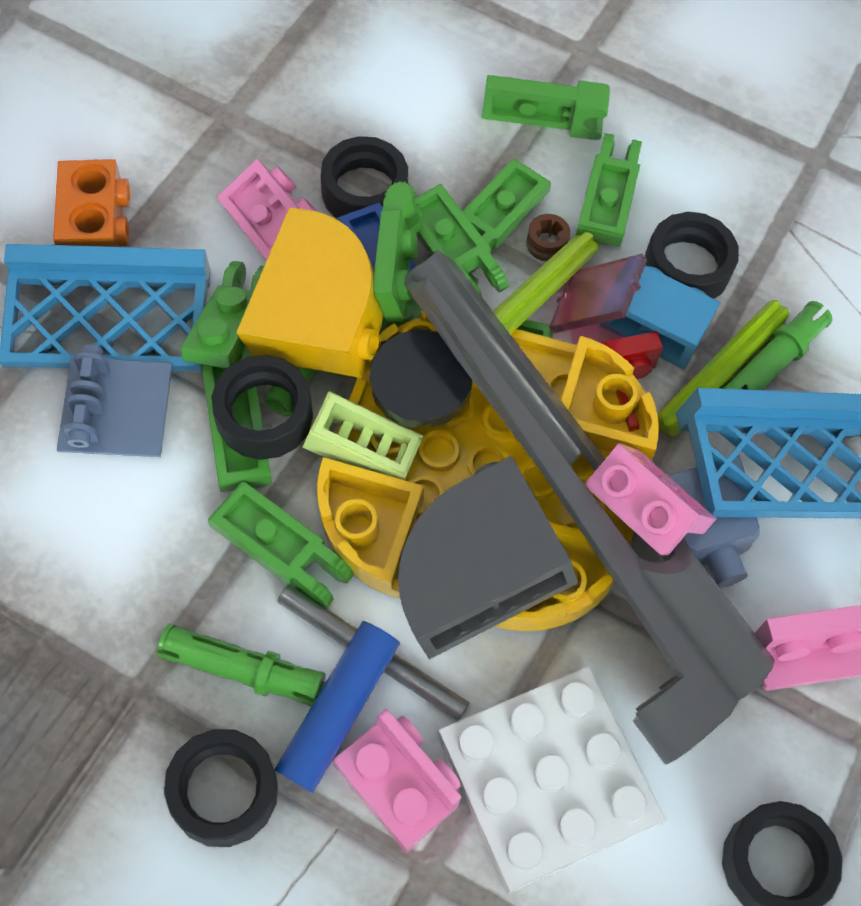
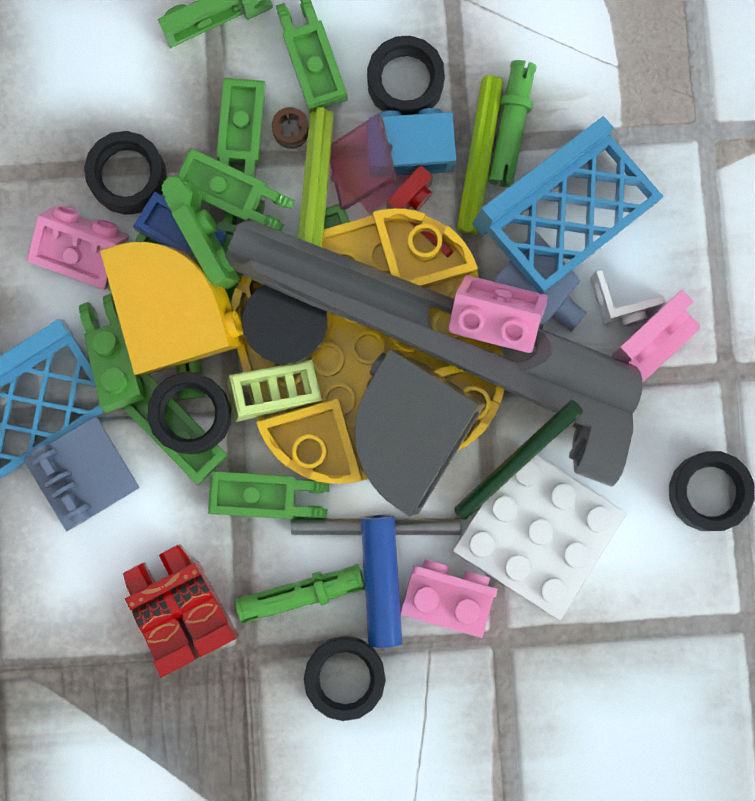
camera: 30 degrees left, 20 degrees up
(100, 597) = (163, 605): none -> red hips
(577, 666) = (518, 459): none -> dark green bar
(788, 599) = (630, 313): none -> white bracket

